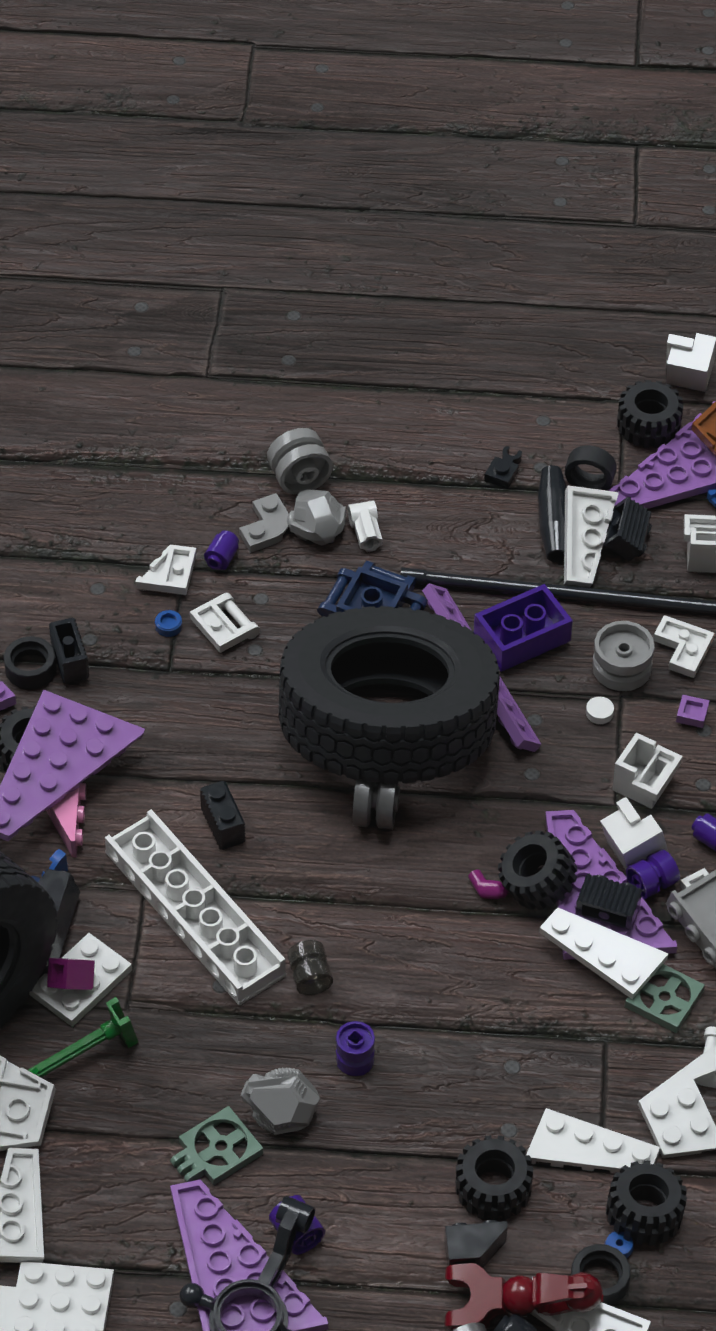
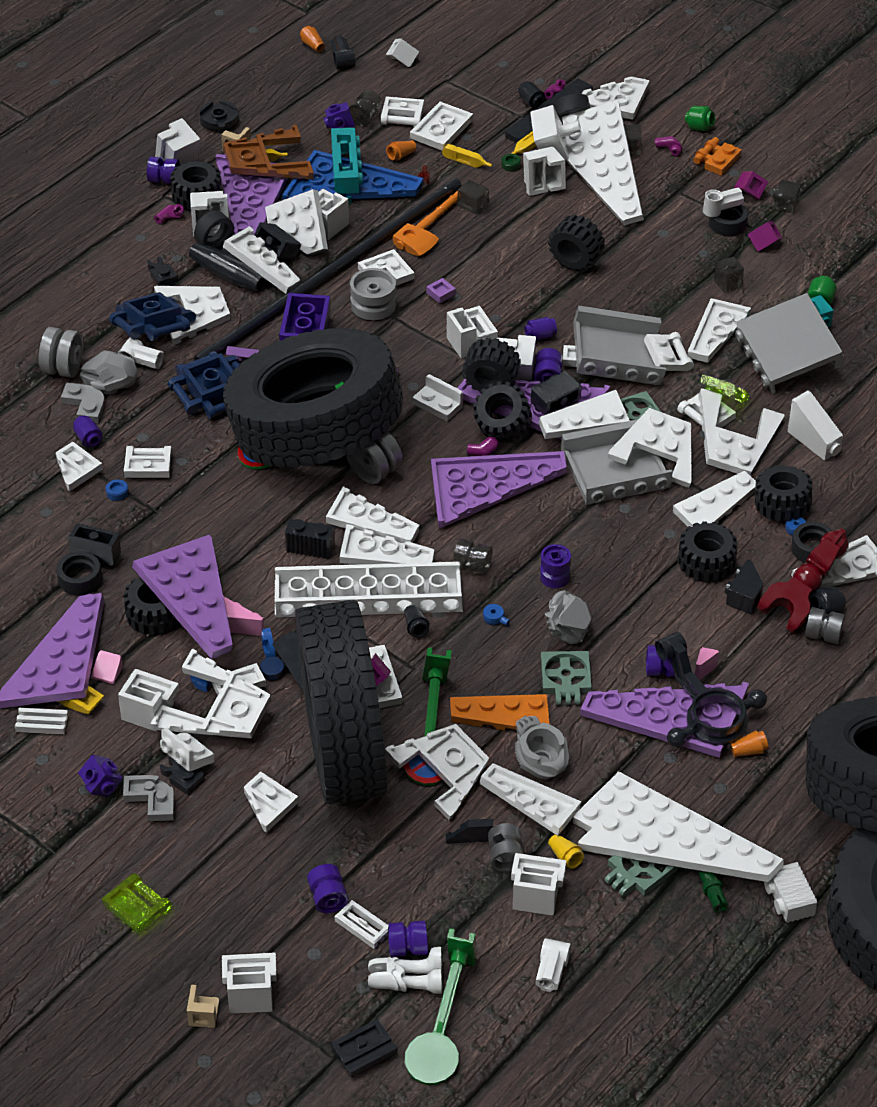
camera: 55 degrees left, 5 degrees down
(80, 1178) = (540, 748): none -> light grey helmet
(127, 1128) = (498, 710): none -> orange wing
(182, 973) = (416, 622): none -> black cone
(252, 1035) = (494, 615): none -> blue piece
(257, 881) = (367, 548): none -> white wing
(296, 845) = (364, 515): none -> white wing
(327, 1266) = (706, 662): none -> bright pink slope
(420, 497) = (152, 315): none -> dark blue brick
(437, 914) = (478, 482): none -> medium lavender wing
(482, 533) = (204, 301): none -> white wing
(523, 806) = (439, 398): none -> white bracket
(568, 1018) = (606, 479): none -> light grey panel
(581, 819) = (490, 363): none -> black tyre
(597, 418) = (169, 212): none -> magenta arm
(599, 710) = (397, 330): white tile -> none
(619, 441) = (205, 202): none -> white plate
(632, 1037) = (661, 436): none -> white wing
(646, 367) = (160, 170): none -> dark purple wheel
(672, 525) = (301, 219): none -> white plate

